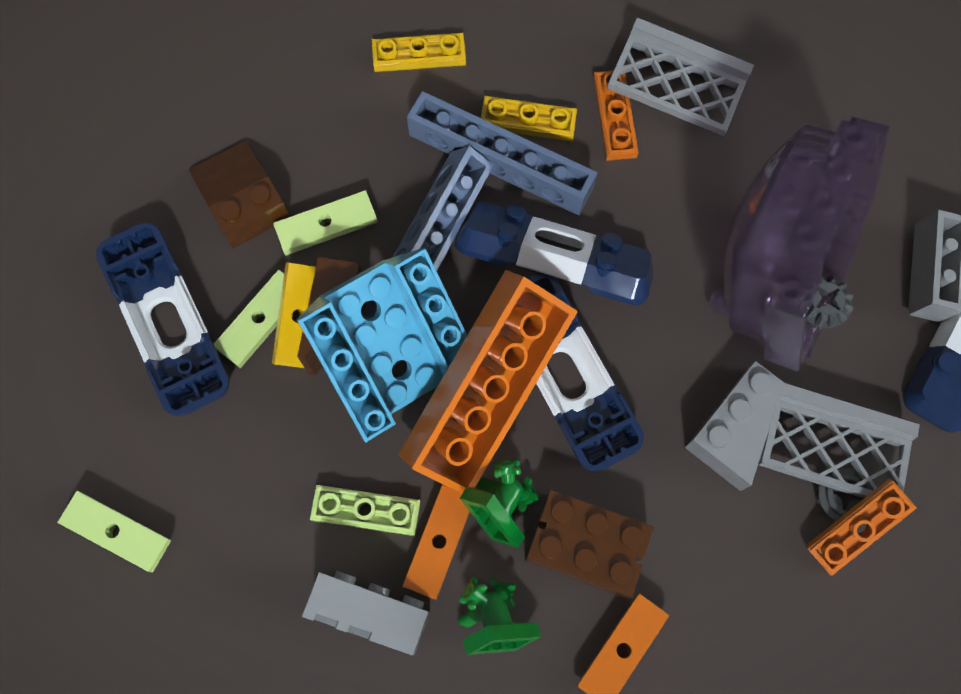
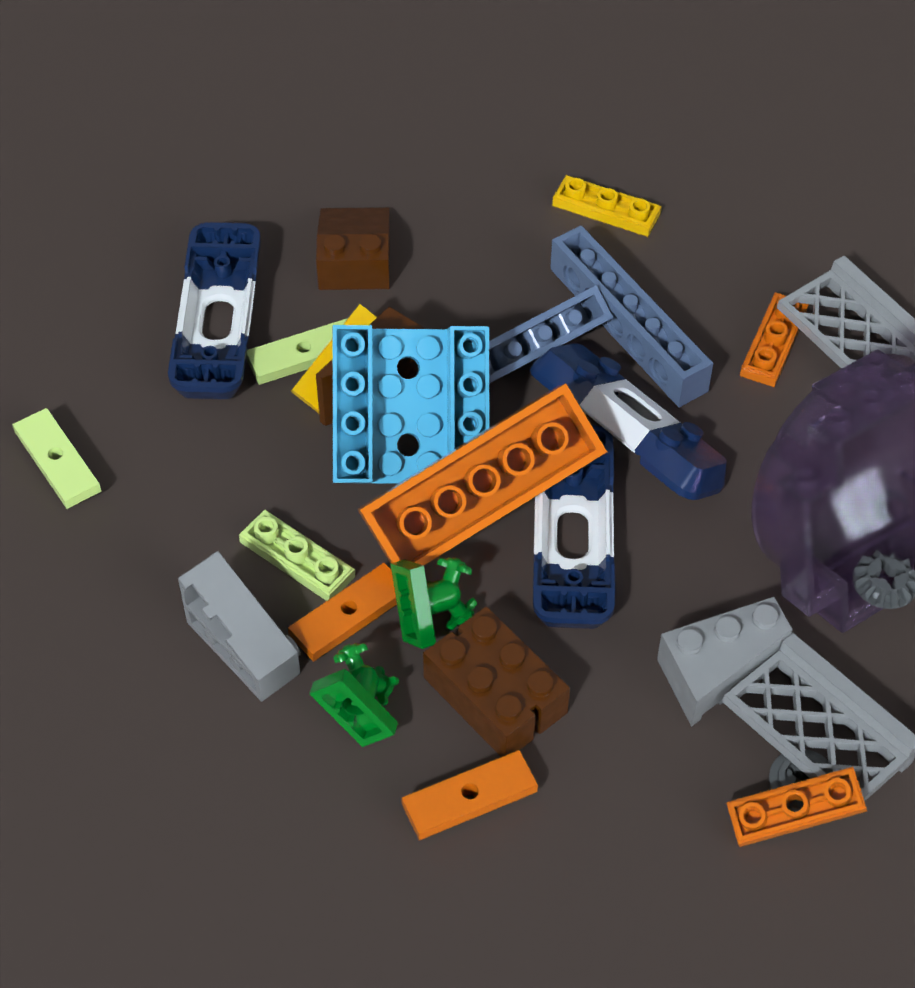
camera: 30 degrees right, 20 degrees down
(307, 230) = (421, 301): yellowish green tile -> none
(545, 119) = (686, 306): yellow tile -> none

